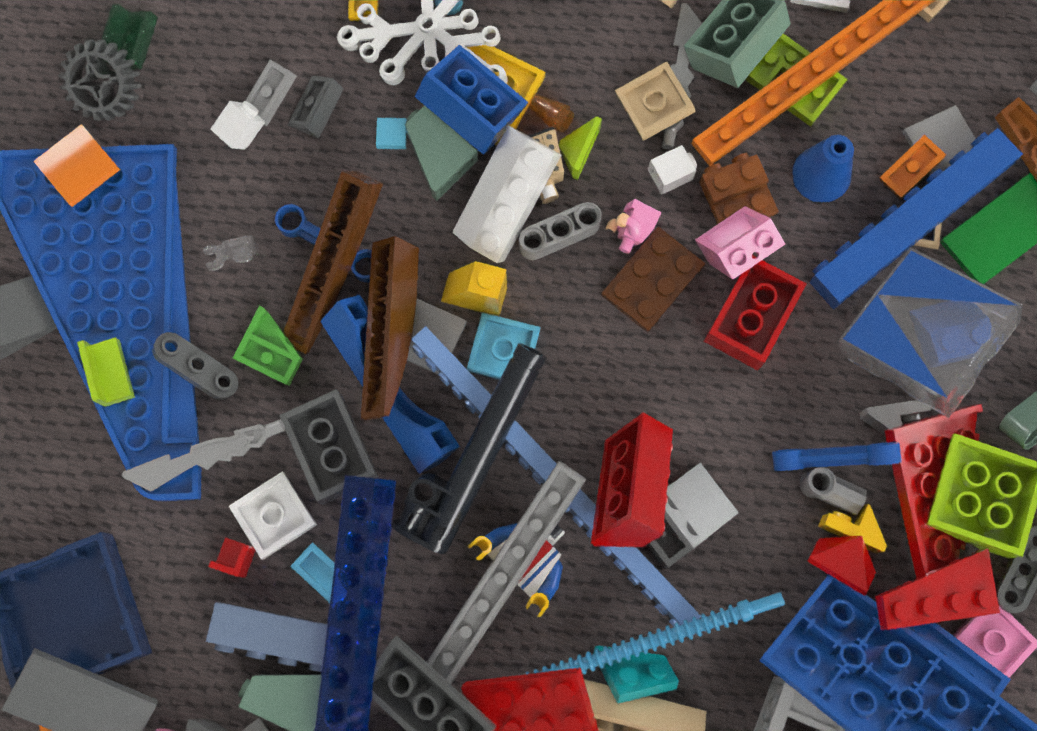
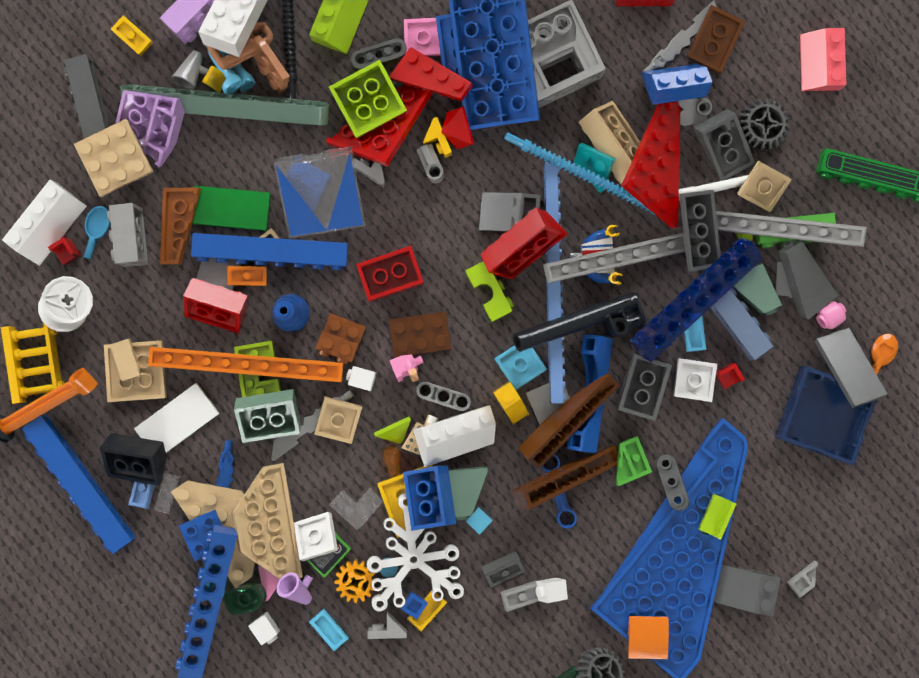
camera: 140 degrees left, 10 degrees up
(205, 454) = (703, 433): light grey sword -> none
(236, 249) = (604, 524): clear plate -> none
(542, 23) = (356, 512): none -> clear plate
(593, 394) = (499, 304): none -> lime arch
(734, 240) = (364, 320): bright pink window -> none
(869, 454) = (403, 159): blue piece -> none
(915, 104) = (215, 305): none -> red slope

